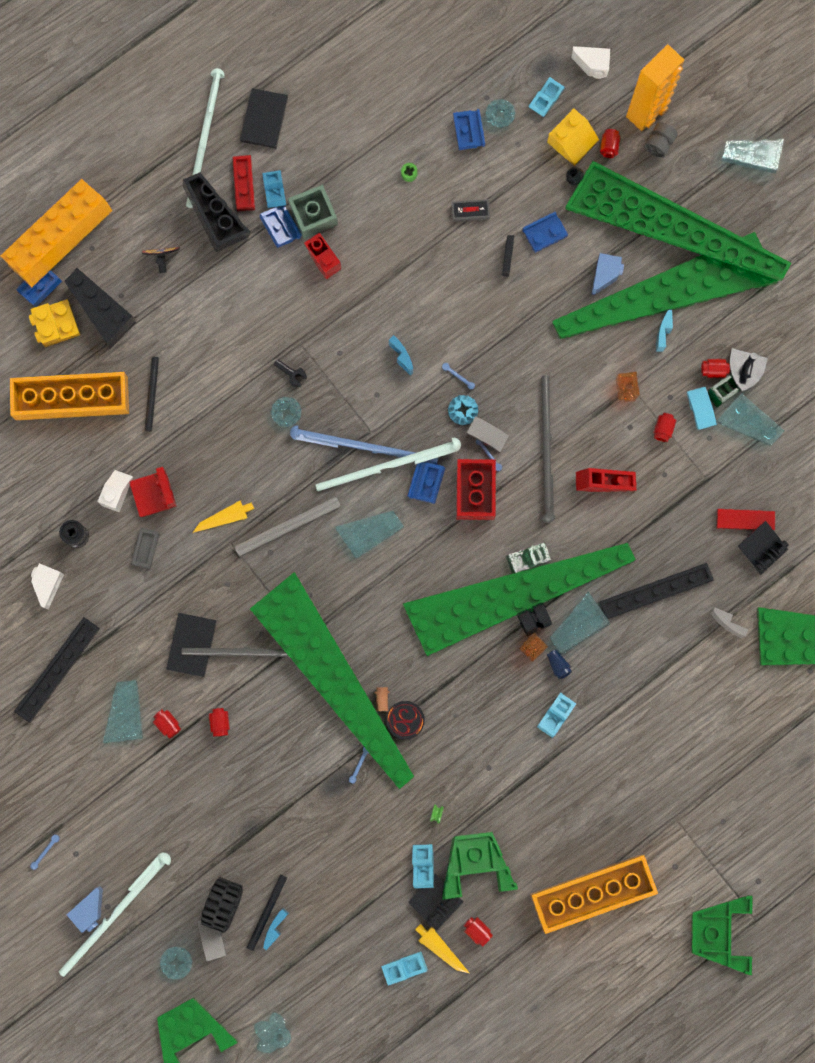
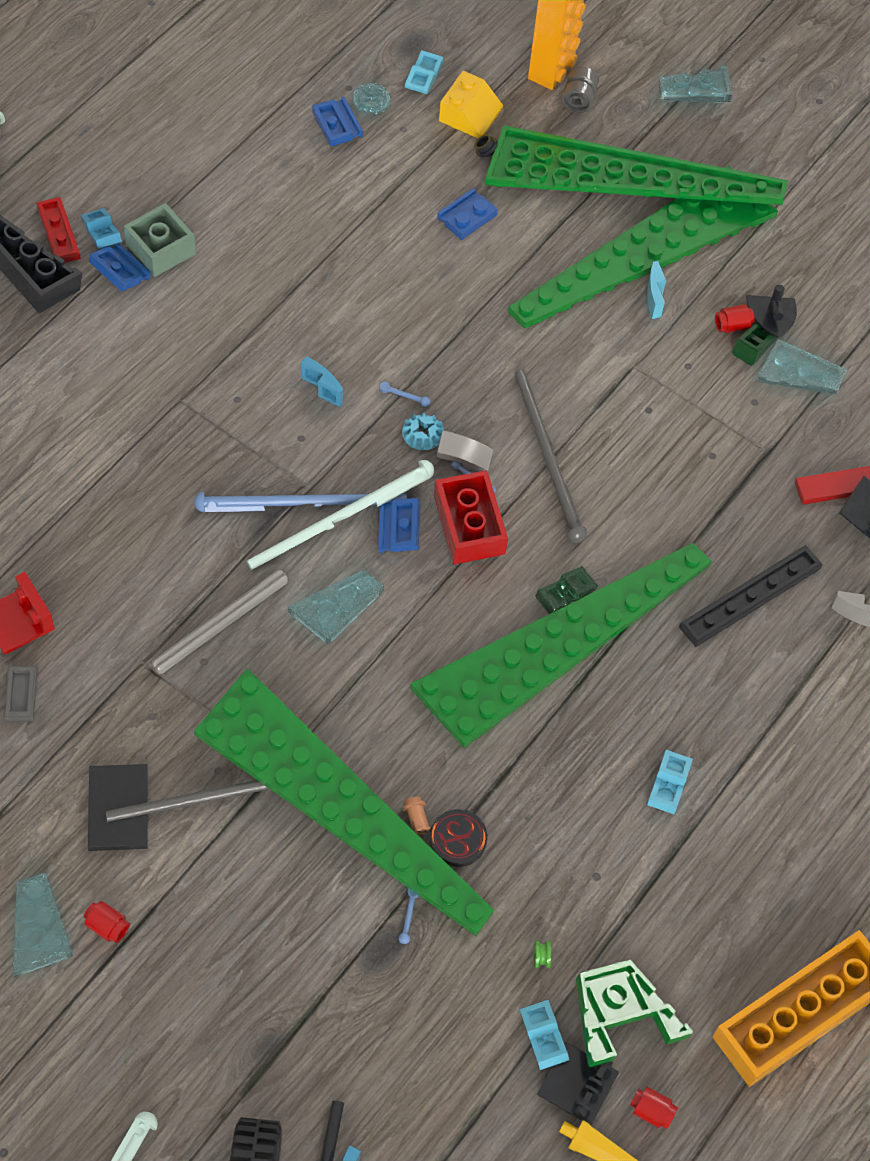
camera: 20 degrees left, 20 degrees down
(219, 722) = (185, 902): red brick -> none
(230, 514) = (135, 623): yellow bar -> none
(264, 118) = (68, 155): black tile -> none
(284, 403) = (175, 473): clear light blue gear -> none
(291, 373) = (179, 434): black bar -> none
(323, 256) = (187, 288): red slope -> none
(411, 166) = (273, 173): bright green bush -> none
(470, 210) = (365, 207): tile -> none
(508, 255) = (429, 245): black tile -> none
(533, 647) = (610, 697): clear orange brick -> none
(534, 619) = (599, 661): black wheel -> none
(559, 665) = (652, 714): dark blue cone -> none
(580, 625) = (665, 657): clear light blue wing -> none
(592, 60) = (468, 25): white slope -> none
(605, 480) = (635, 473): red slope -> none
(606, 272) = (560, 239): medium blue slope -> none
(610, 143) = (519, 105): red brick -> none
(625, 394) = (630, 360): clear orange brick -> none
(664, 427) = (694, 397): red brick -> none
(701, 407) = (733, 366): medium azure slope -> none

